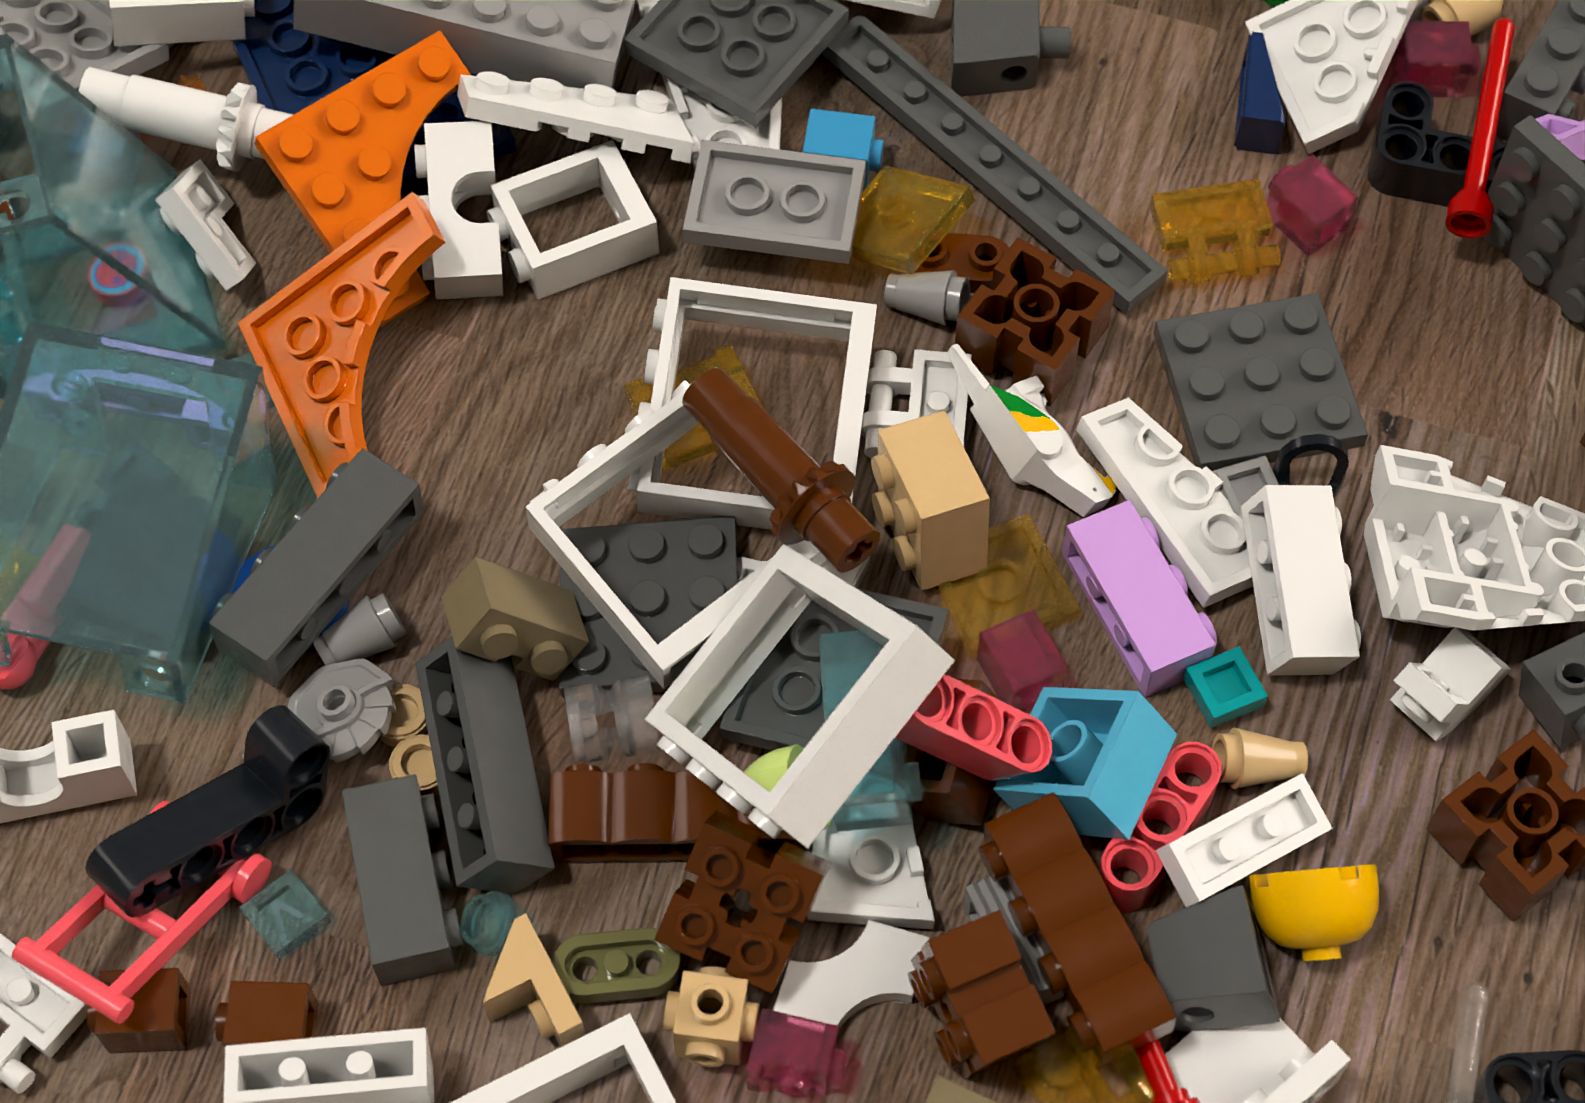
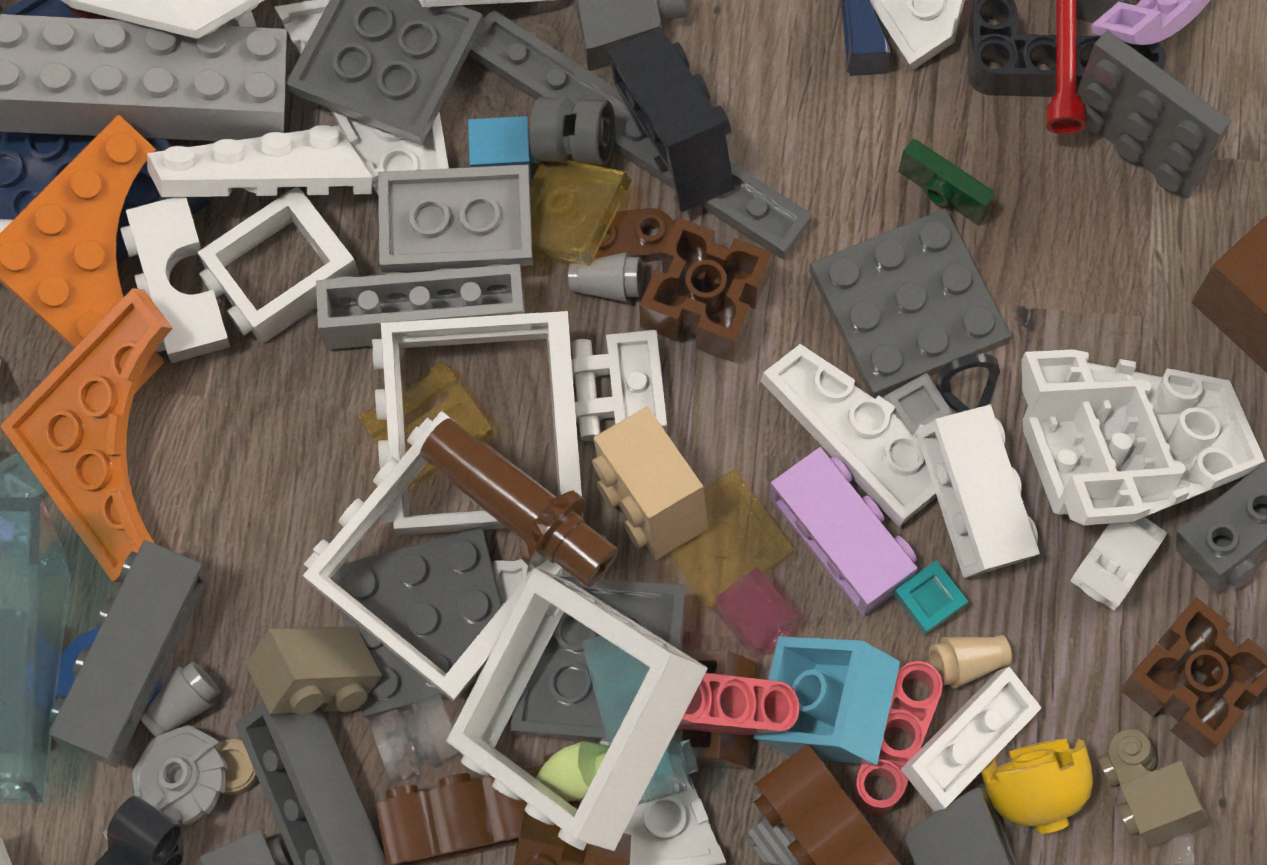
camera: 10 degrees left, 10 degrees up
(415, 757) = (252, 811): tan tile -> none
(641, 266) = (355, 307): none -> light grey brick
(912, 136) = (566, 130): none -> dark grey wheel
(1031, 441) = (725, 402): white animal -> none
(1039, 141) = (675, 115): none -> black wedge
(1213, 216) = (841, 150): clear yellow plate -> none
(1310, 204) = (924, 117): clear pink brick -> none
(1324, 266) = (946, 182): none -> dark green plate
(1453, 946) = (1158, 802): none -> dark tan brick

